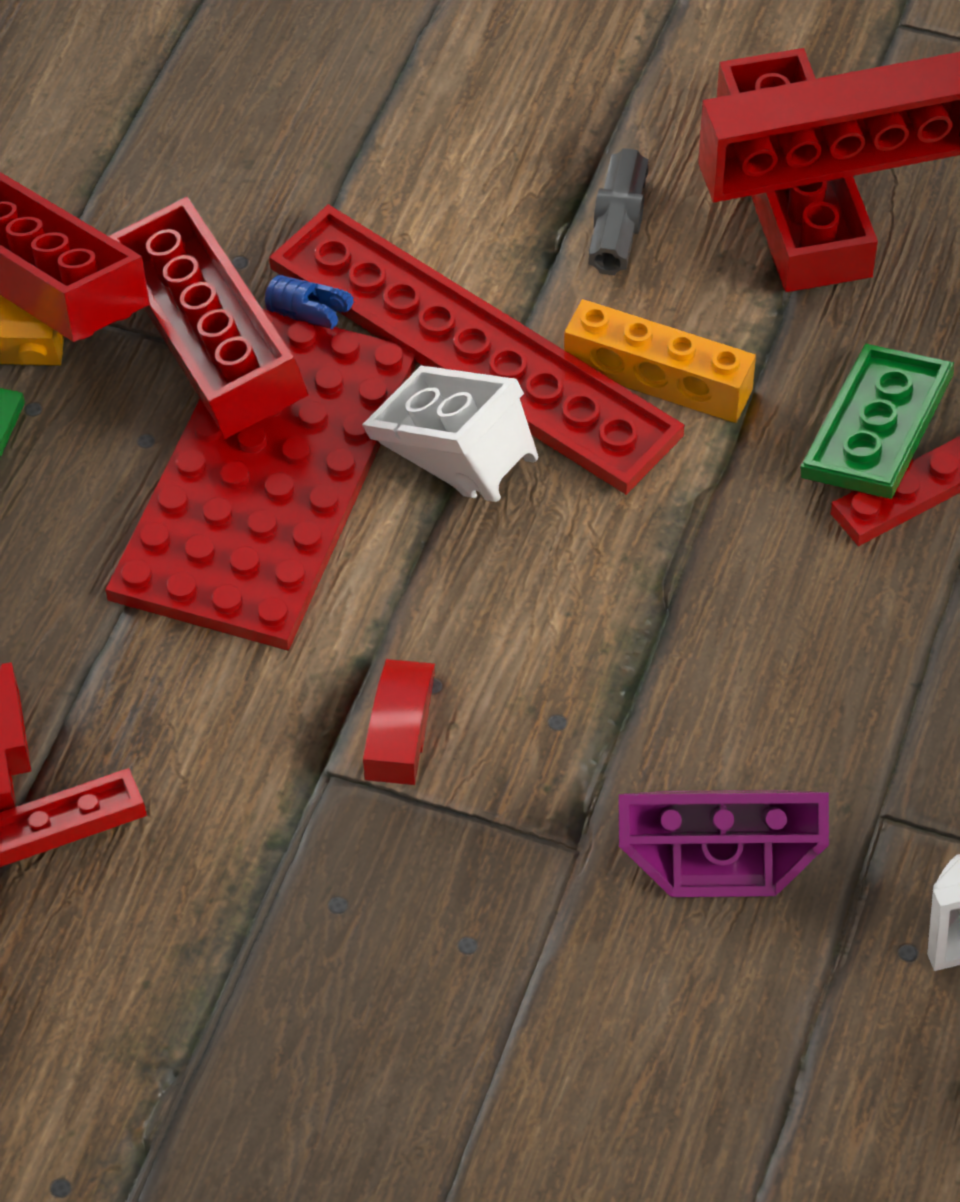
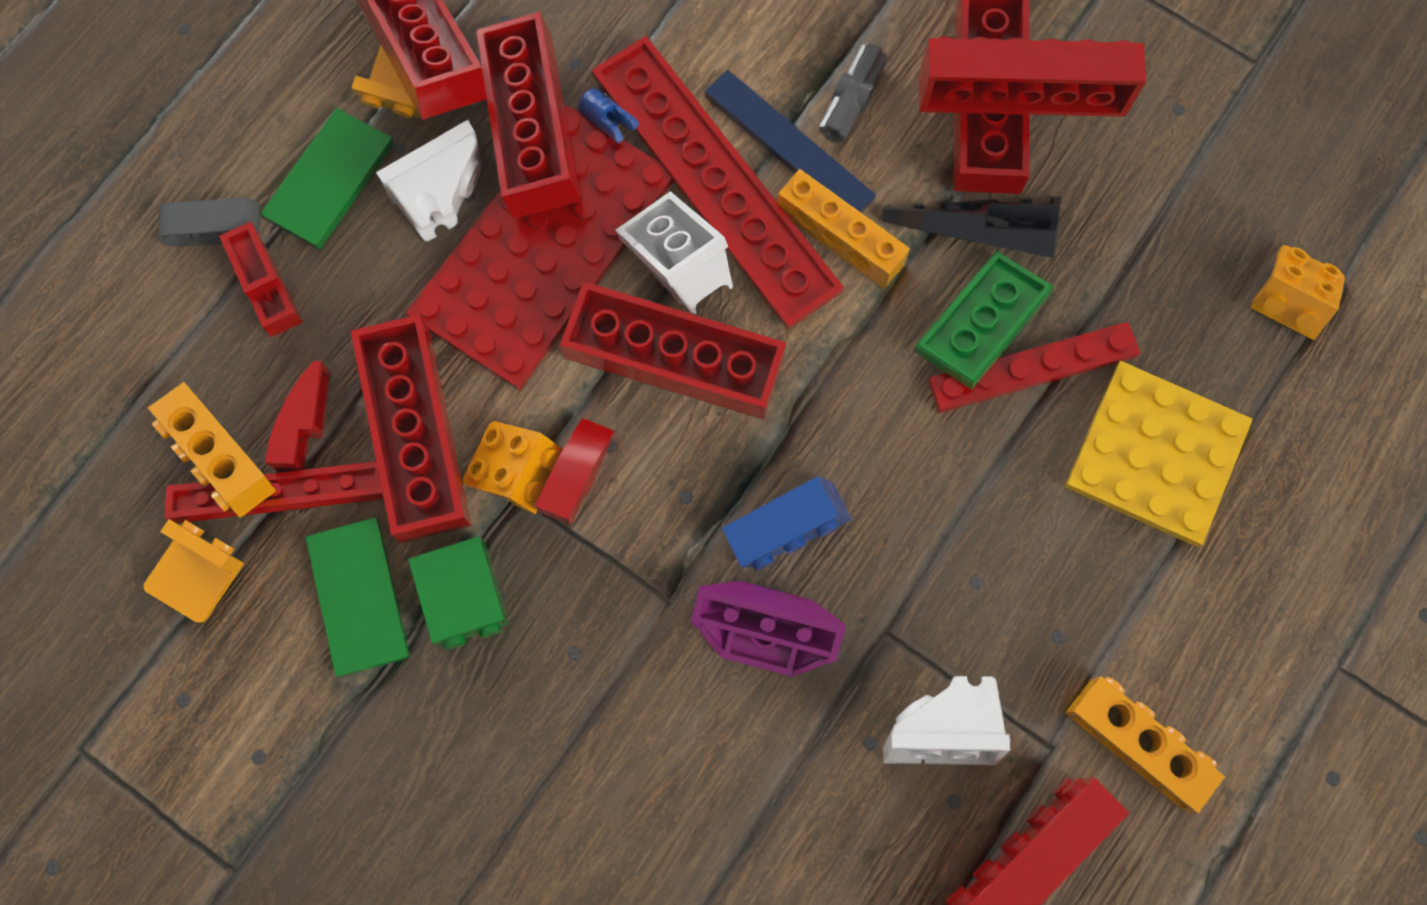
camera: 15 degrees right, 20 degrees up
(98, 421) = (435, 179): none -> white piece
(144, 948) = (357, 597): none -> green tile
(161, 718) = (410, 429): none -> red brick
(287, 900) = (459, 593): none -> green brick
(312, 725) = (512, 464): none -> light orange bracket
(486, 543) = (673, 350): none -> red brick
(534, 277) = (785, 139): none -> dark blue tile
(706, 705) = (787, 523): none -> blue wedge
(872, 310) = (1008, 225): none -> black wedge

